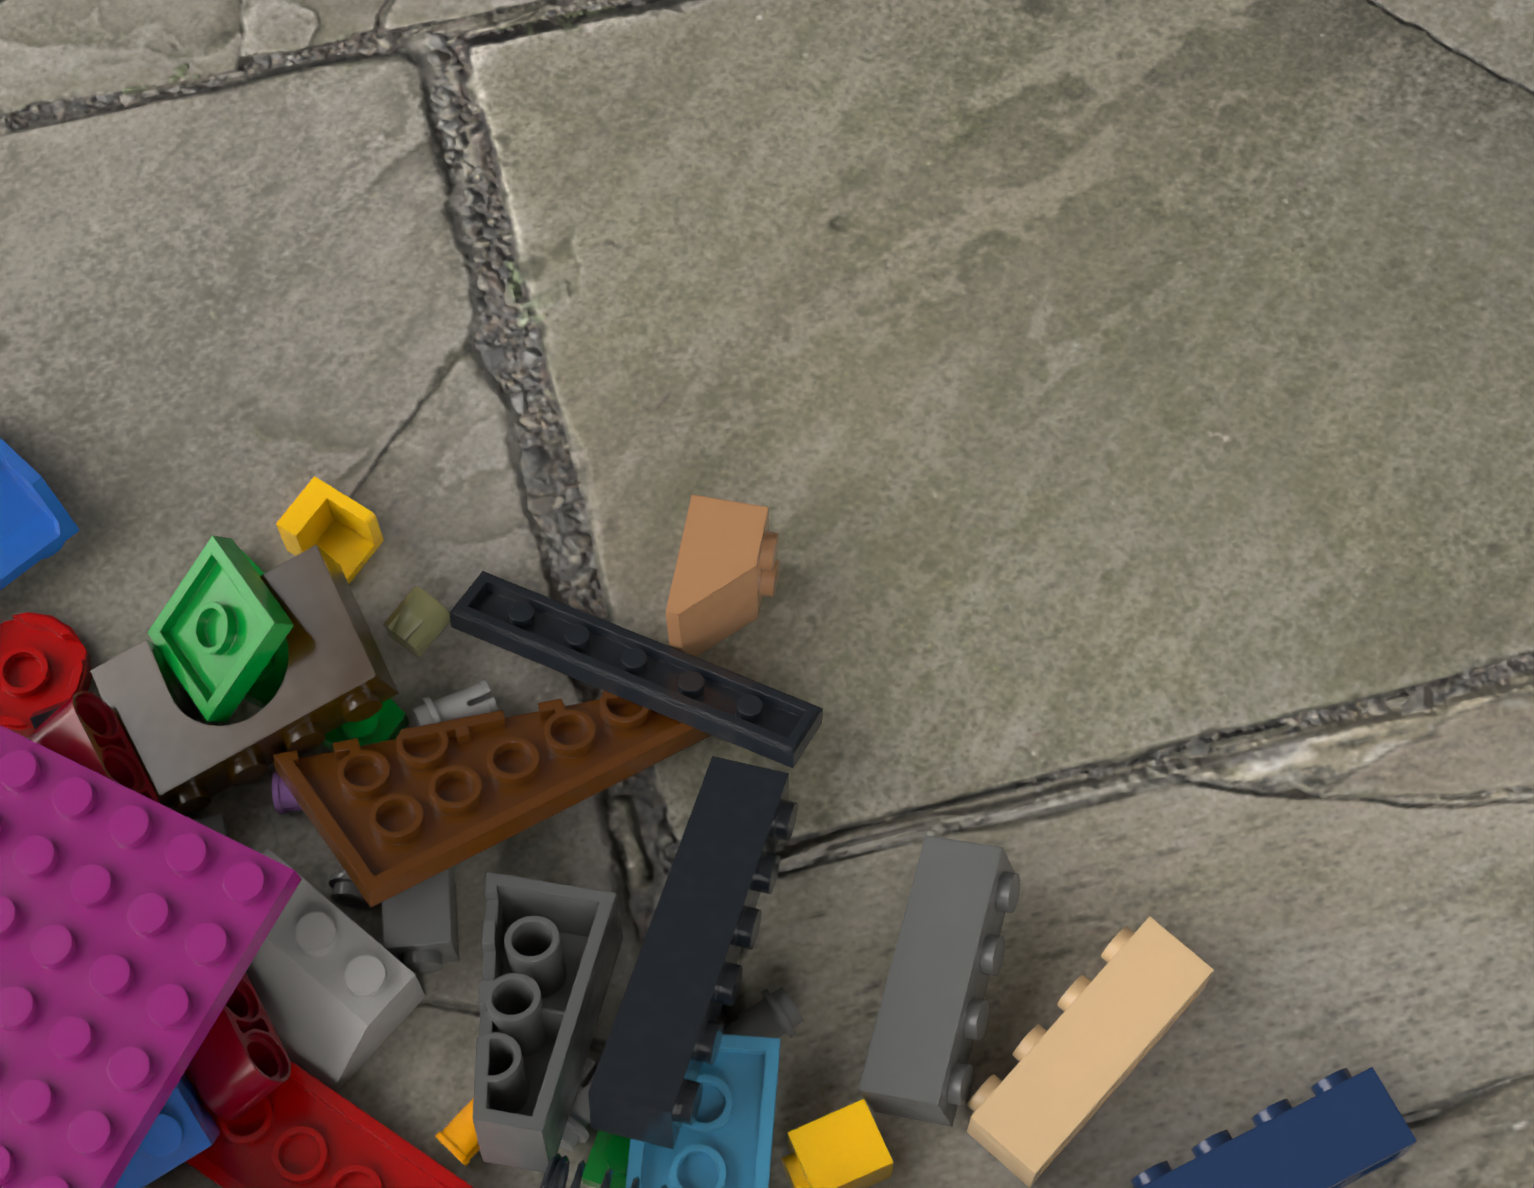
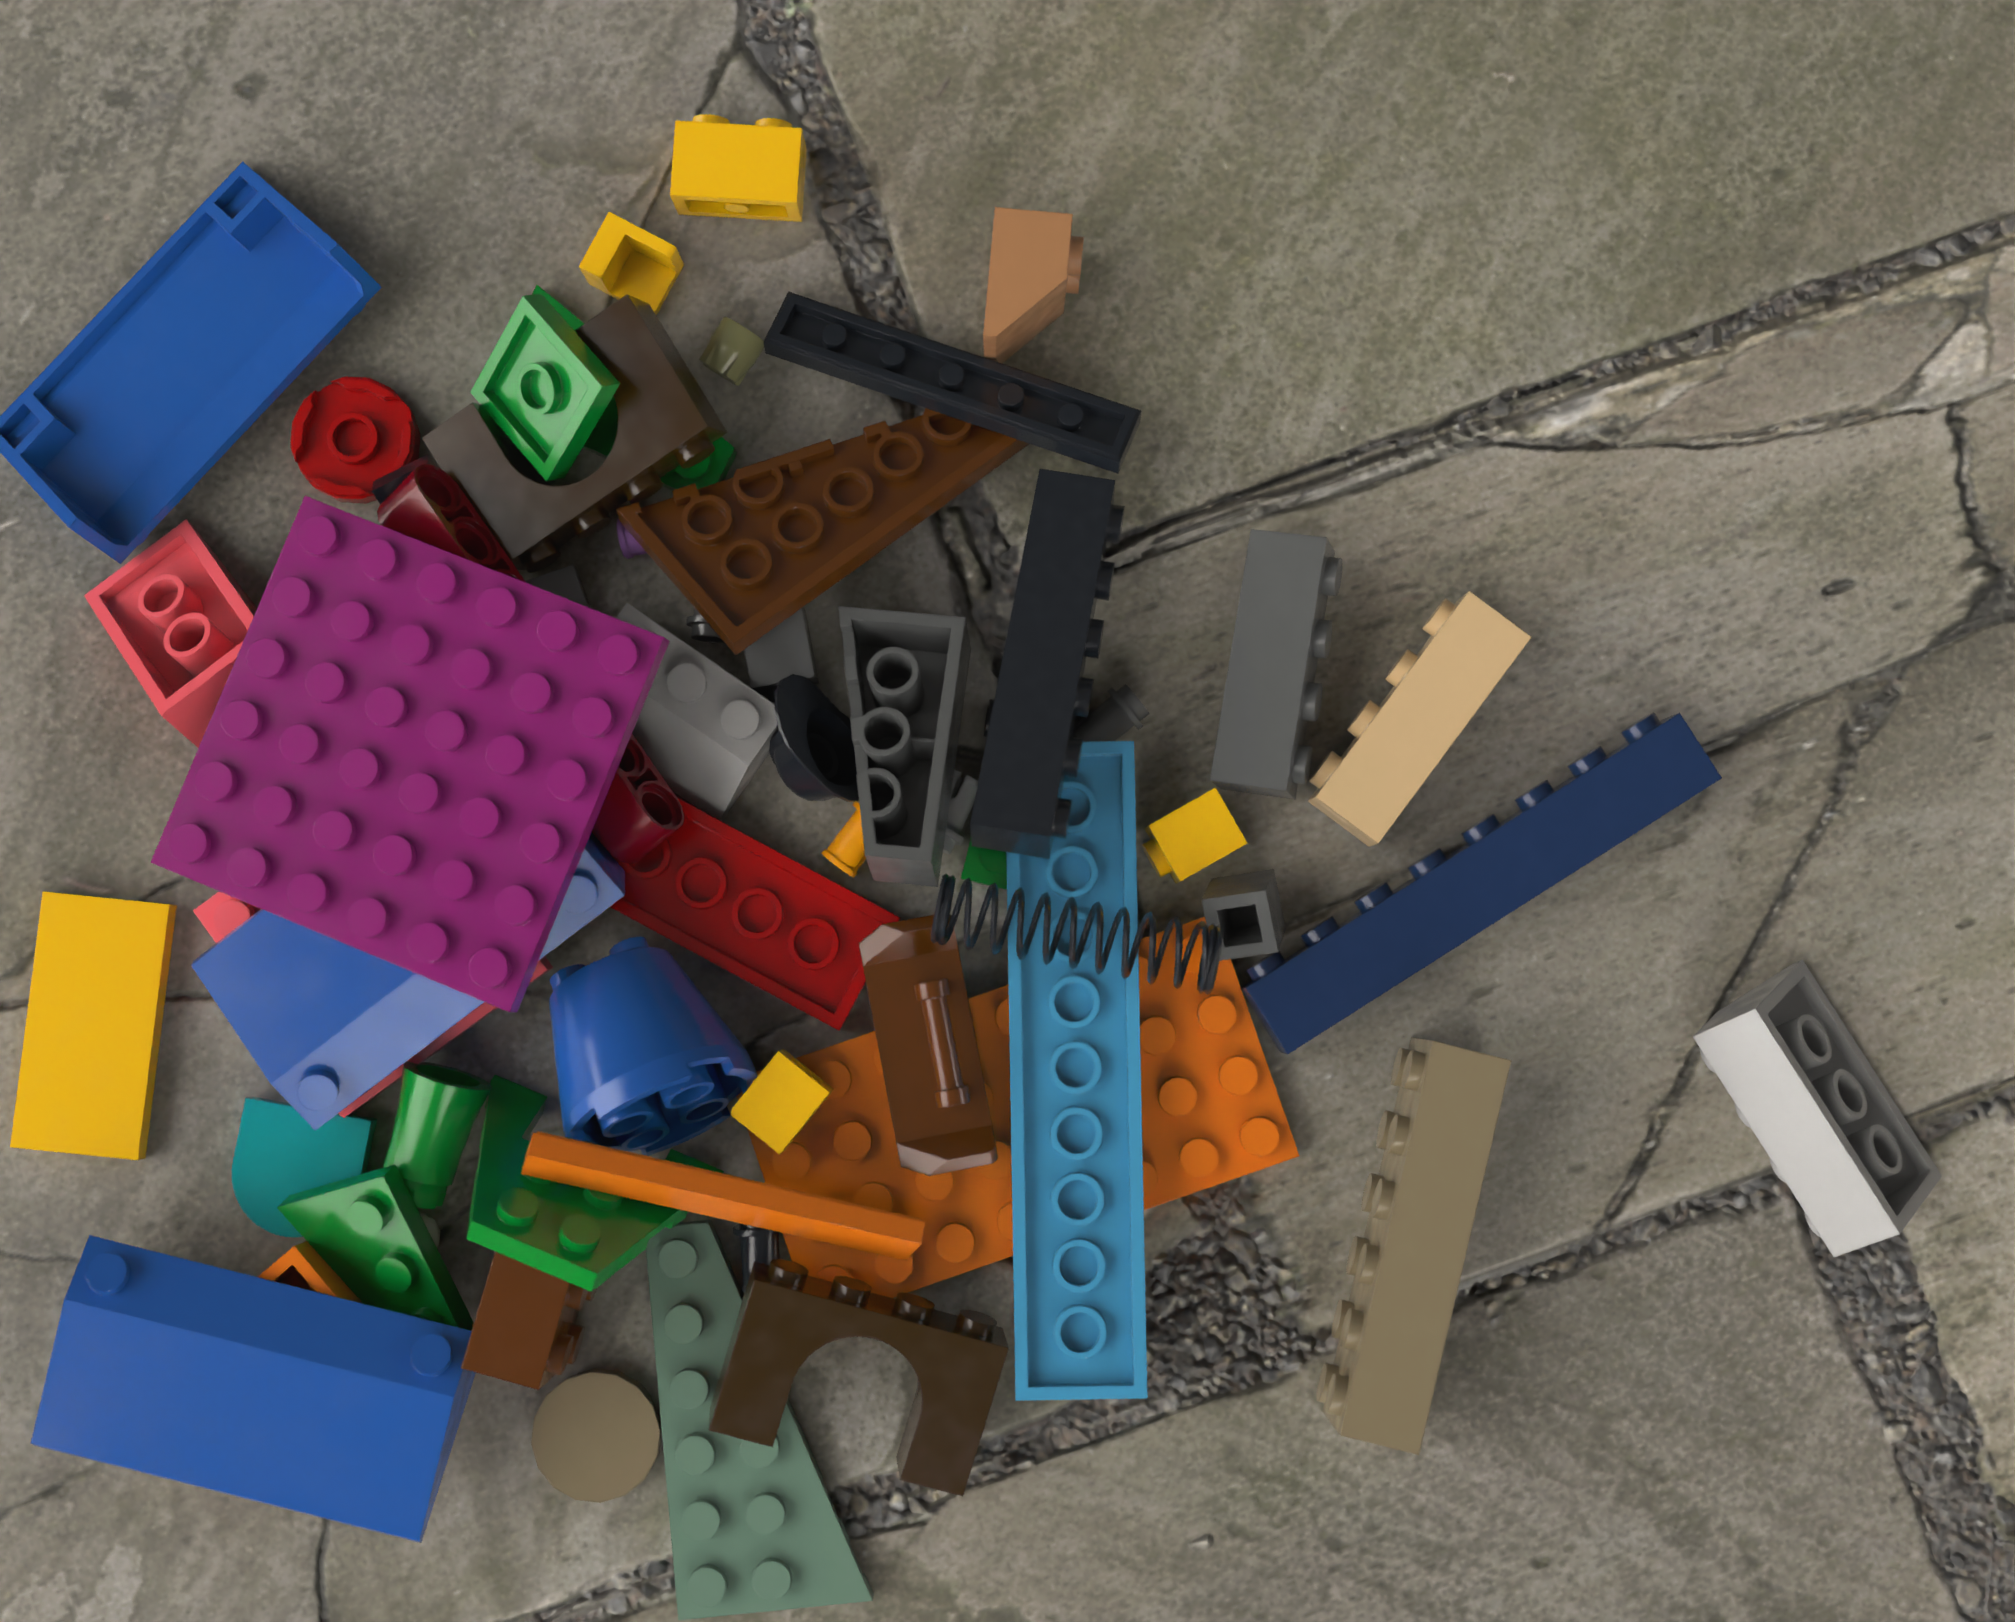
camera: 10 degrees left, 20 degrees up
(438, 1011) = (813, 743): none -> black piece
(449, 453) = (738, 169): none -> yellow brick
(460, 704) = (780, 437): light grey pin -> none

